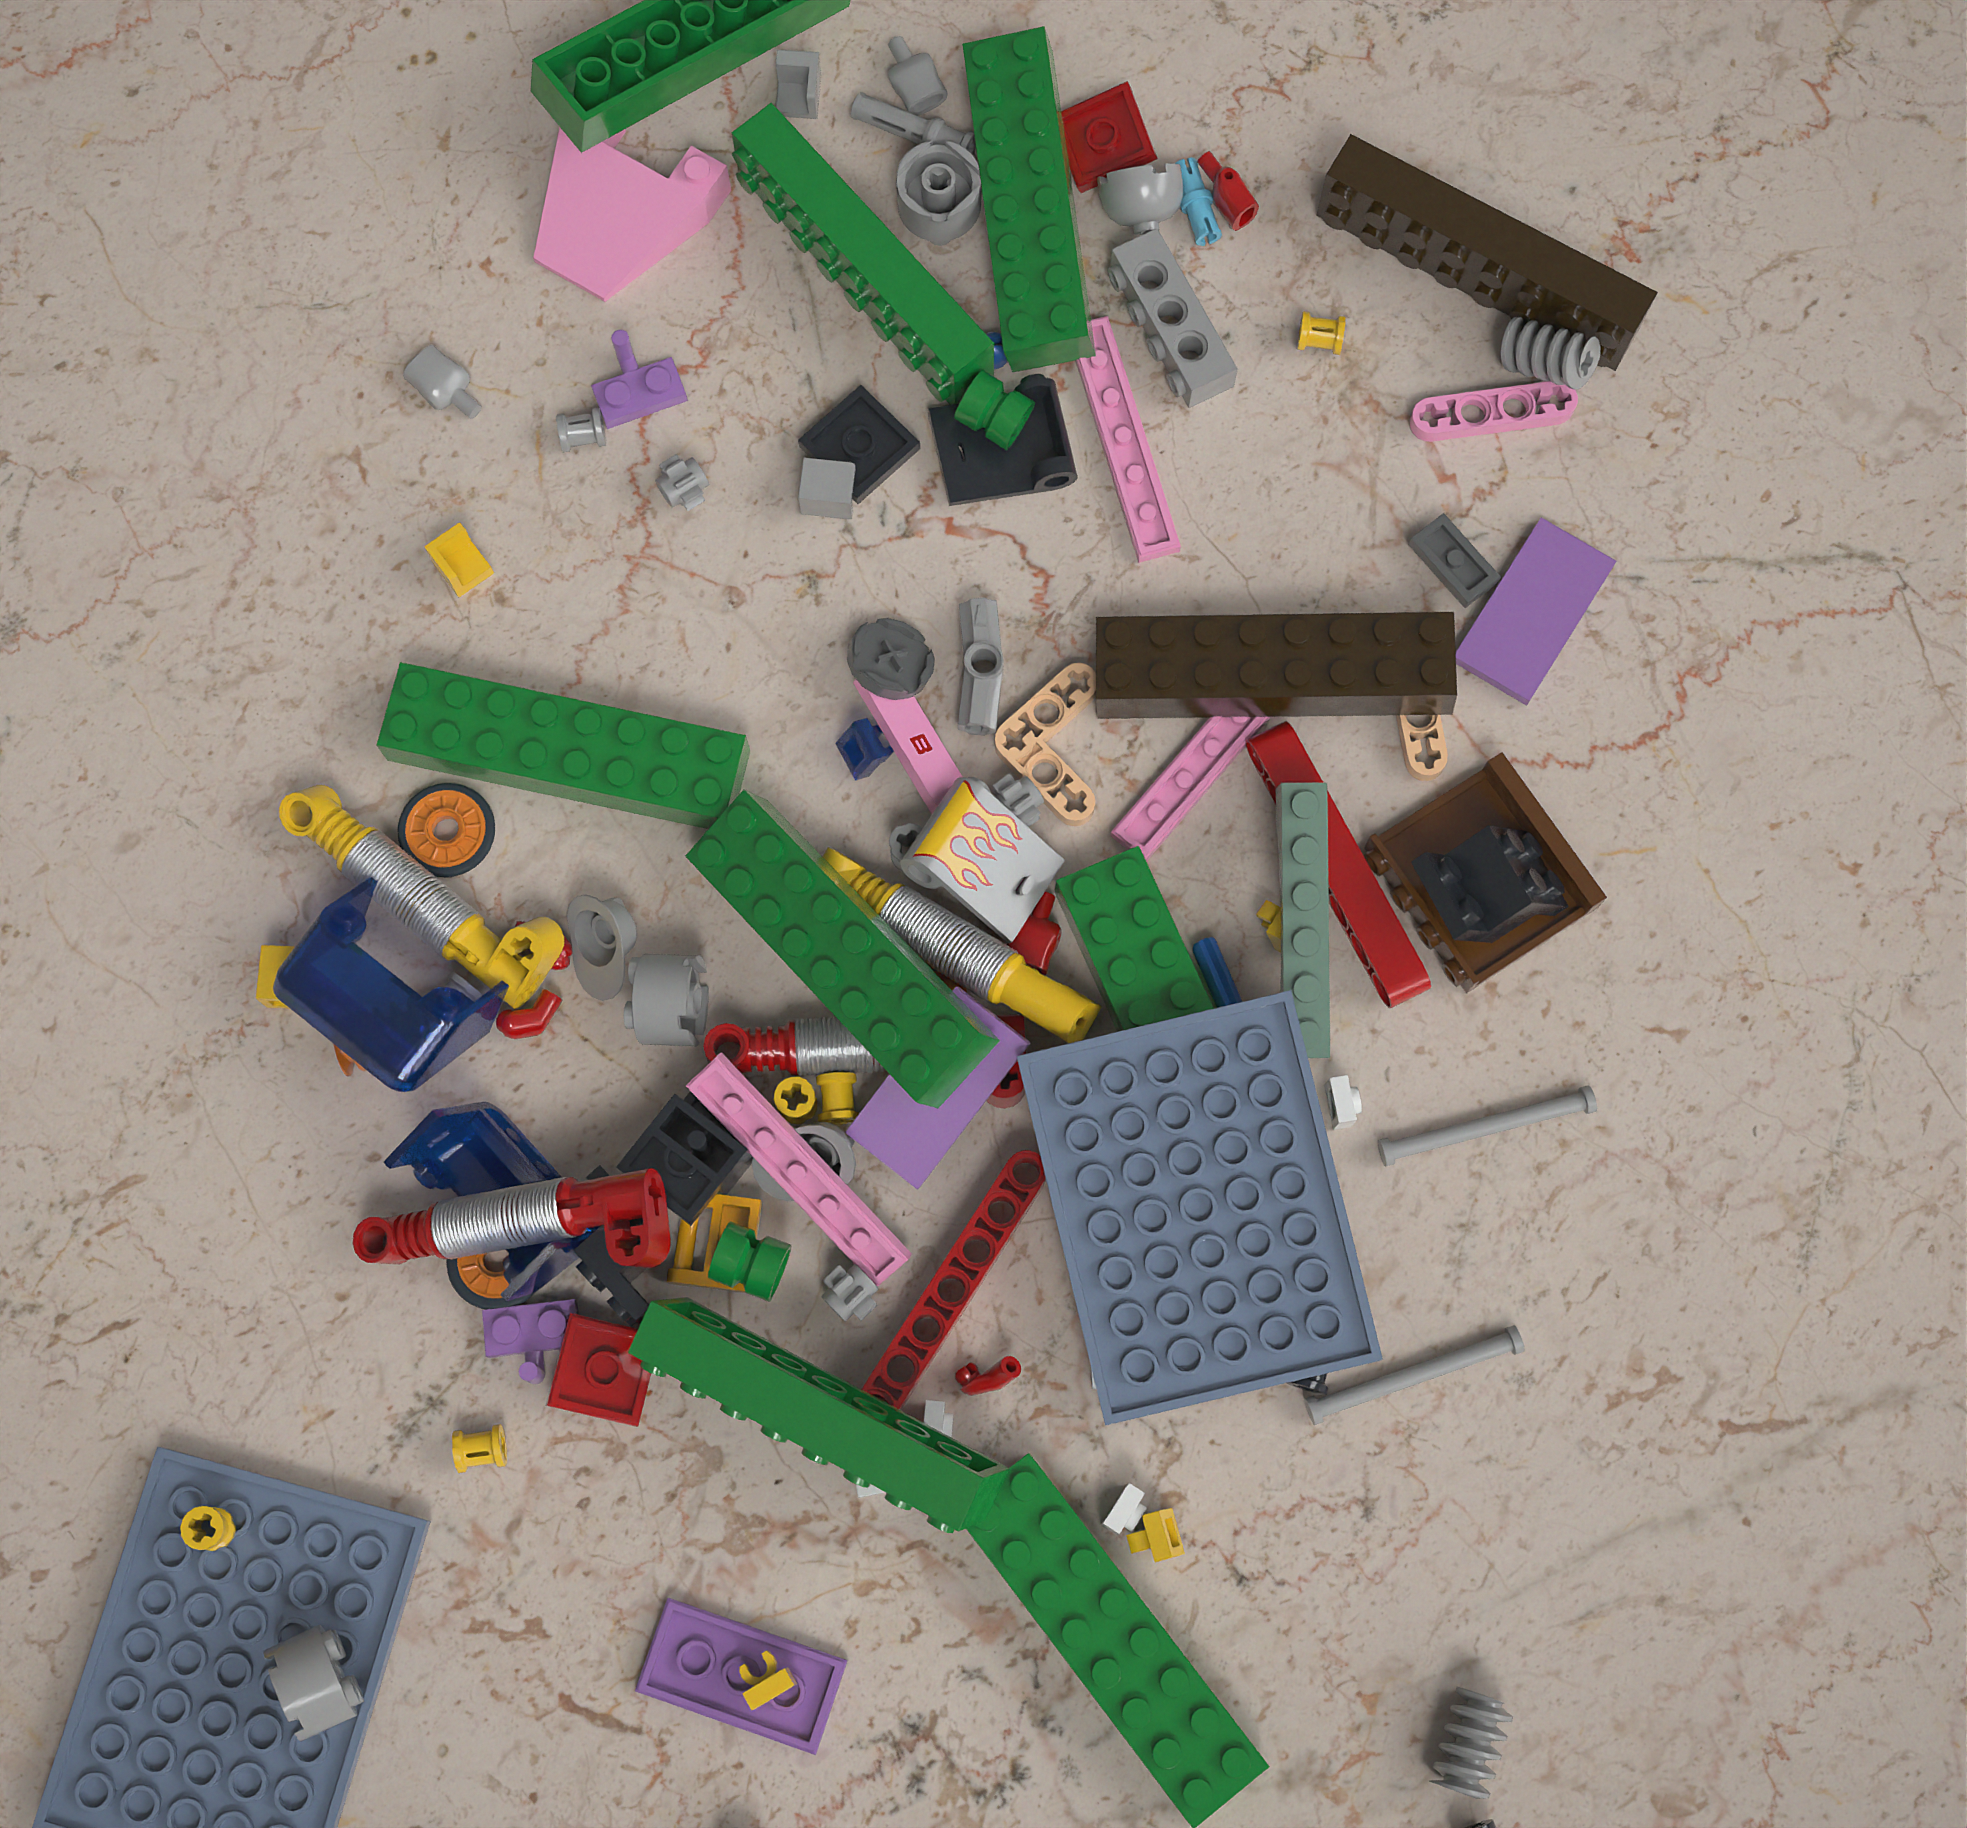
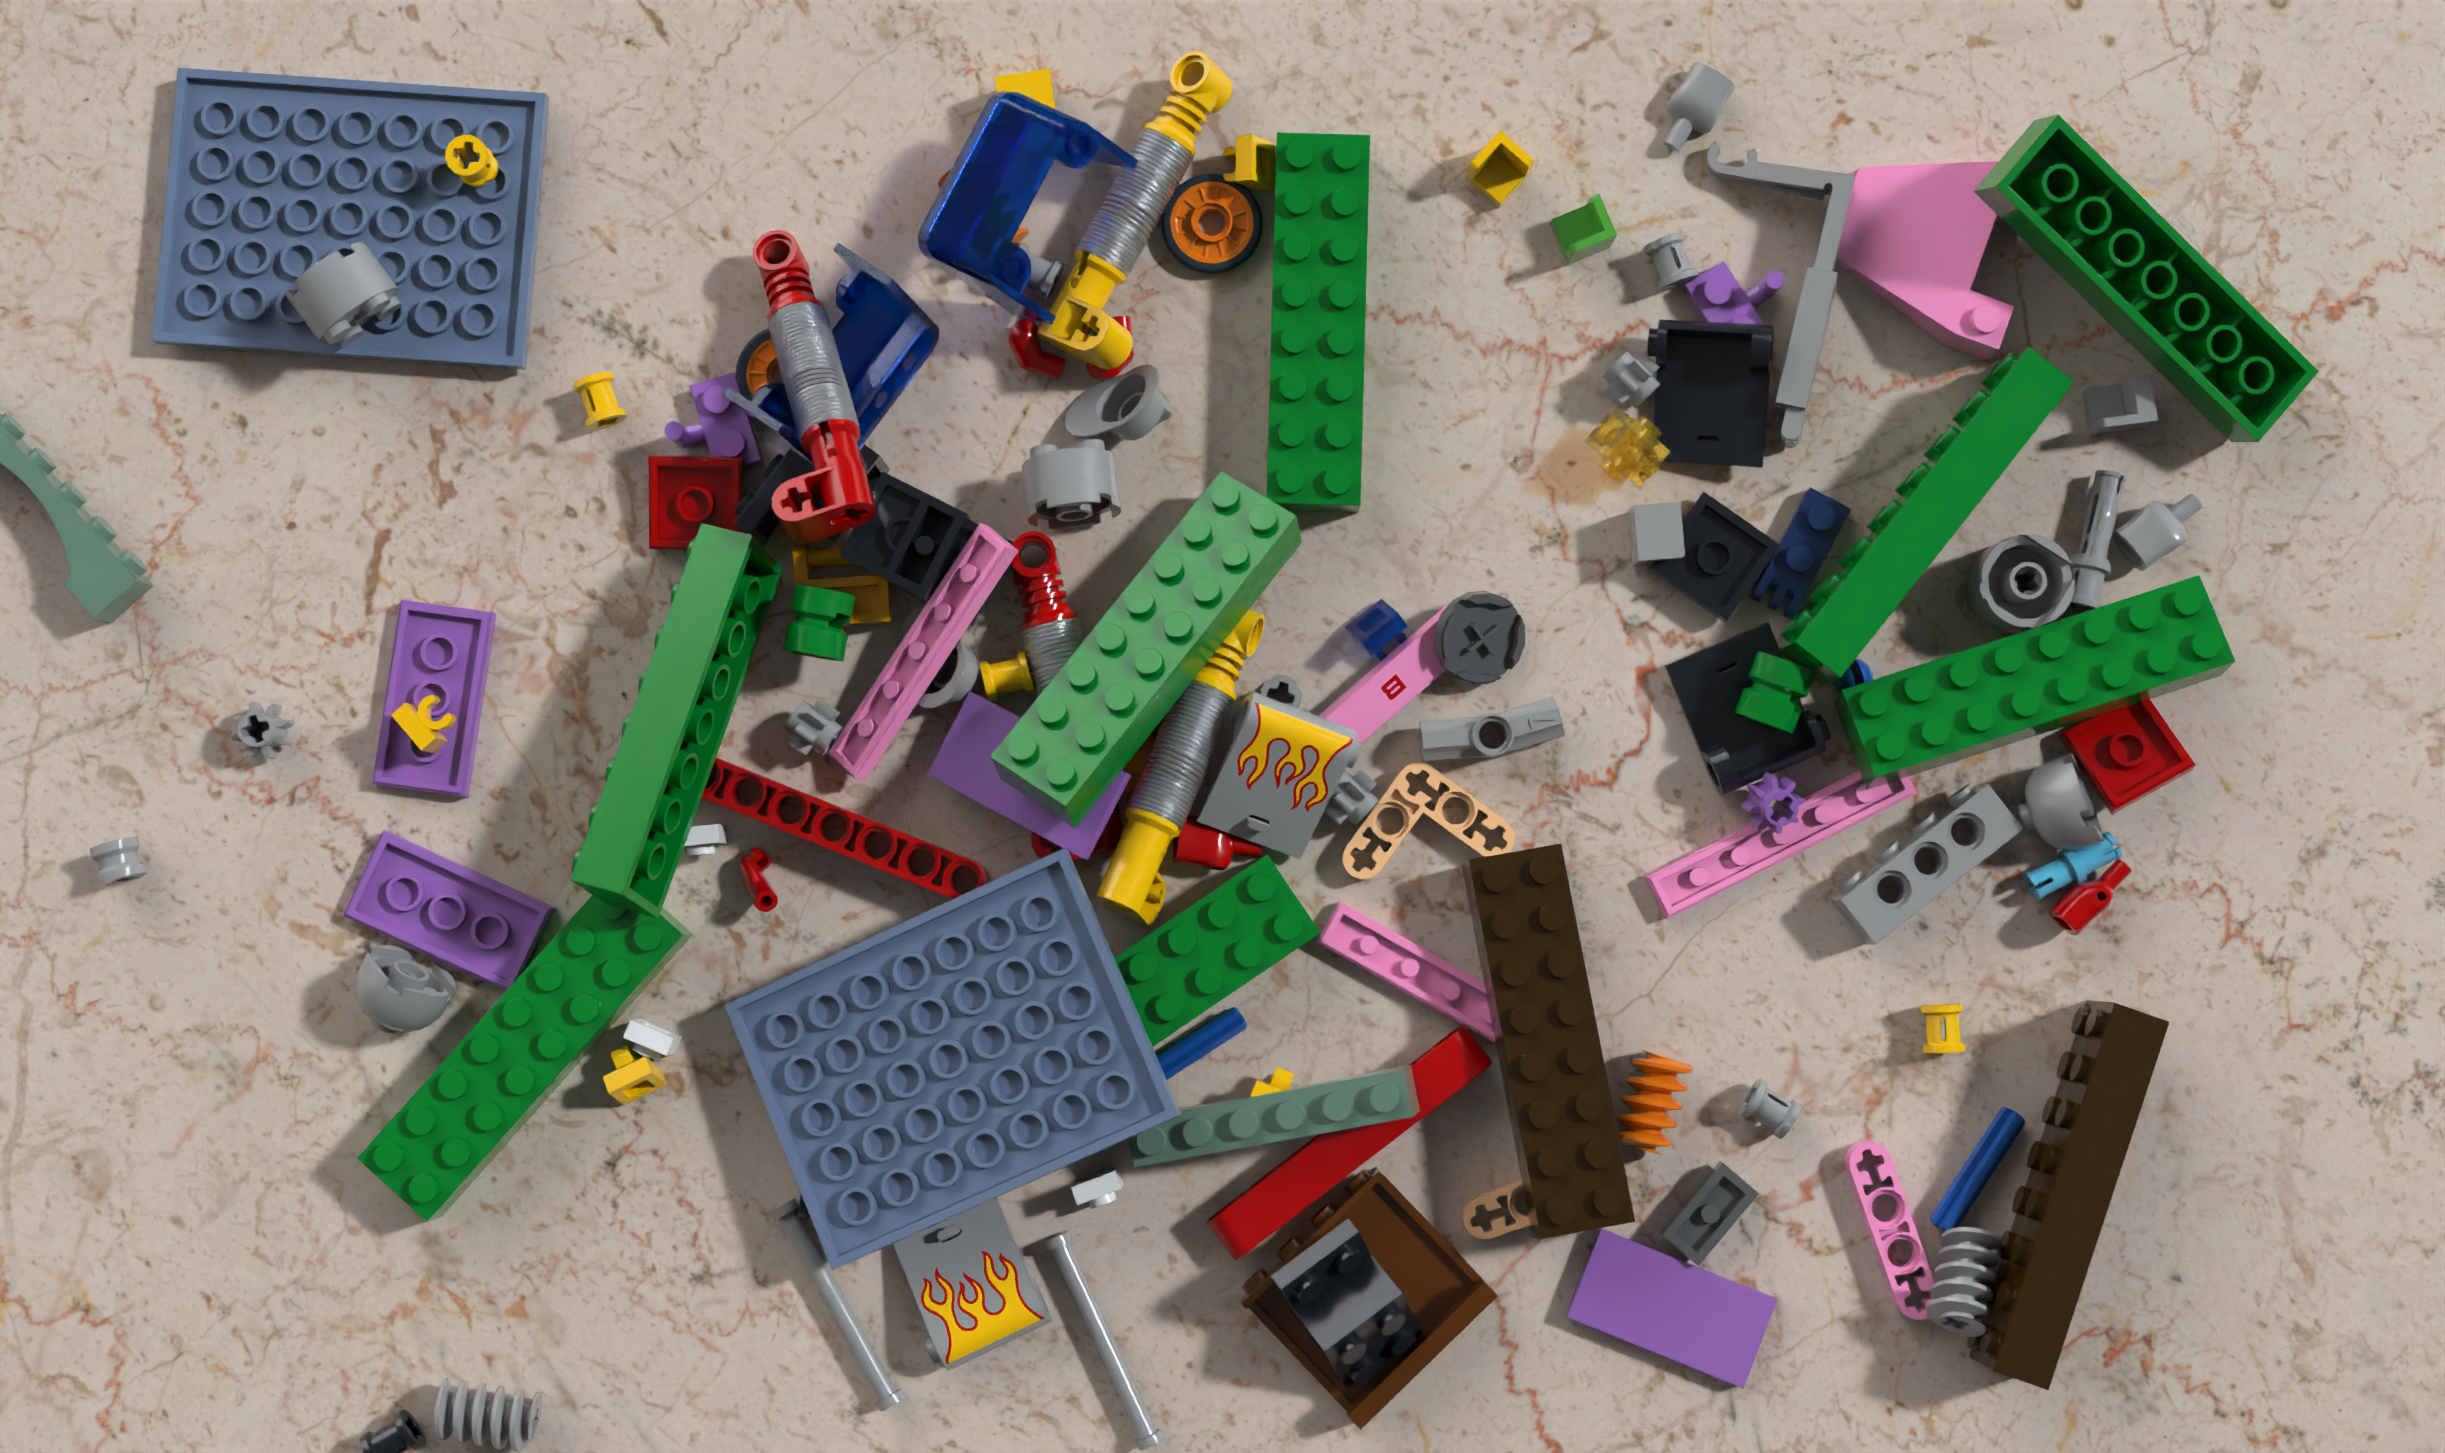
camera: 80 degrees right, 10 degrees up
(399, 778) = (1253, 162): none -> yellow tile
(533, 497) = (1584, 230): none -> bright green panel
(636, 308) = (1819, 282): none -> light grey hinge
(706, 415) = (1712, 386): none -> black door
(748, 489) = (1627, 447): none -> clear yellow brick
(788, 1089) = (986, 625): yellow bush -> none
(863, 364) = (1801, 551): none -> dark blue hinge
(959, 1699) = (448, 911): none -> medium lavender tile
(1033, 1758) = (400, 991): none -> light grey cylinder
(1093, 432) = (1784, 808): none -> medium lavender gear
(1344, 586) = (1652, 1102): none -> orange piece
(1368, 490) = (1769, 1108): none -> light grey bush
(1419, 1239) = (971, 1287): none -> light grey door
(1451, 329) = (1977, 1169): none -> blue axle

